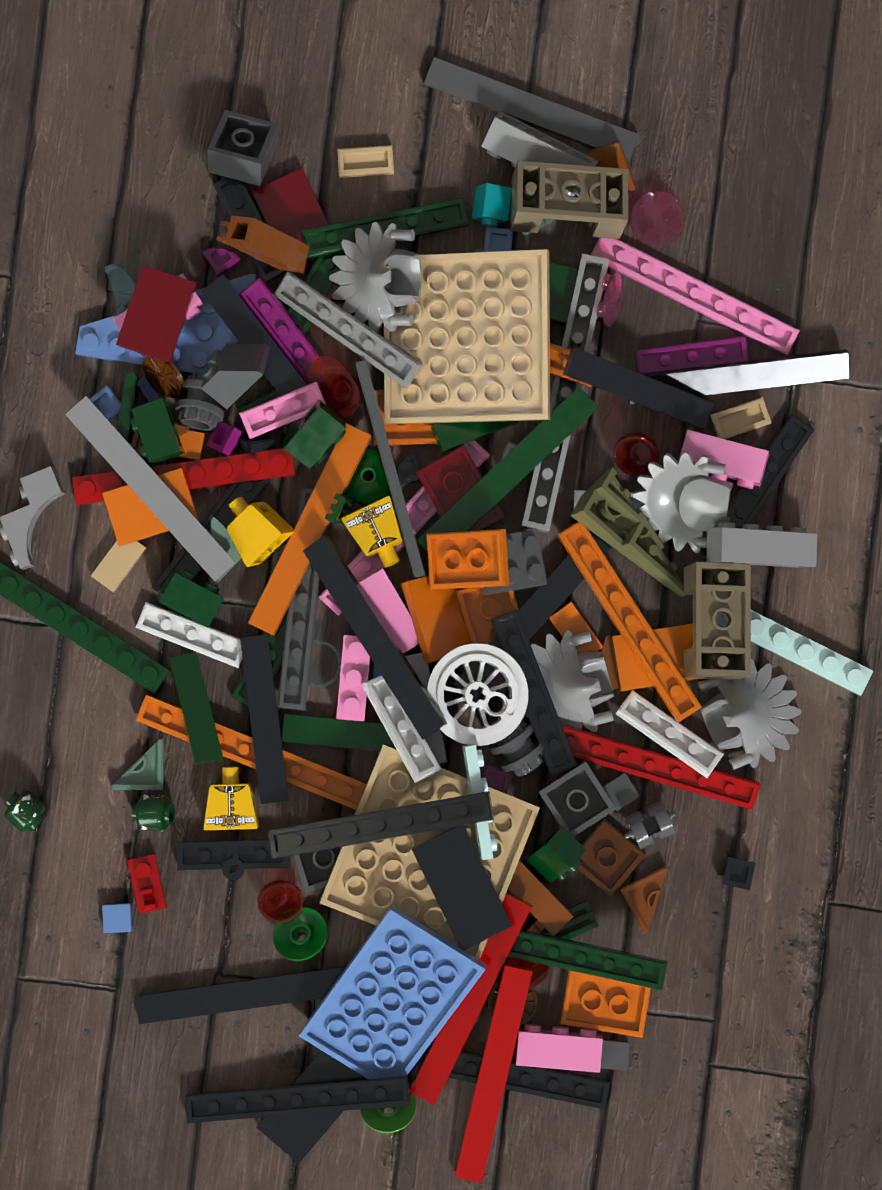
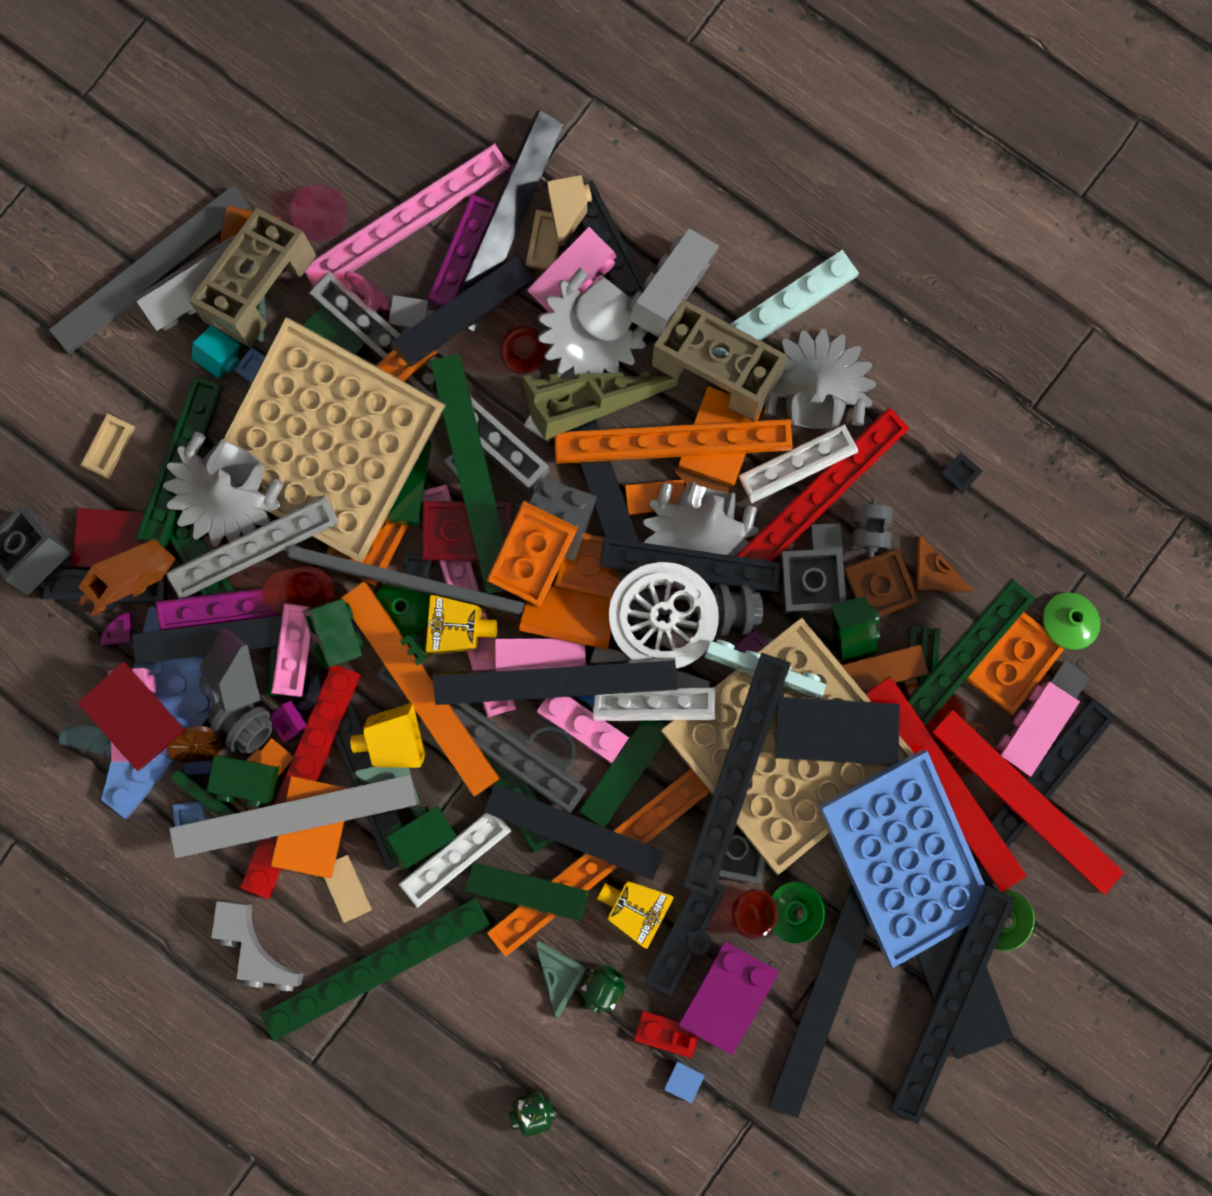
camera: 60 degrees left, 5 degrees down
(201, 916) = (728, 998): none -> magenta slope
(612, 344) = (407, 312): none -> light grey brick
(653, 1029) = (1063, 629): none -> bright green dish
(779, 422) = (568, 205): none -> tan slope

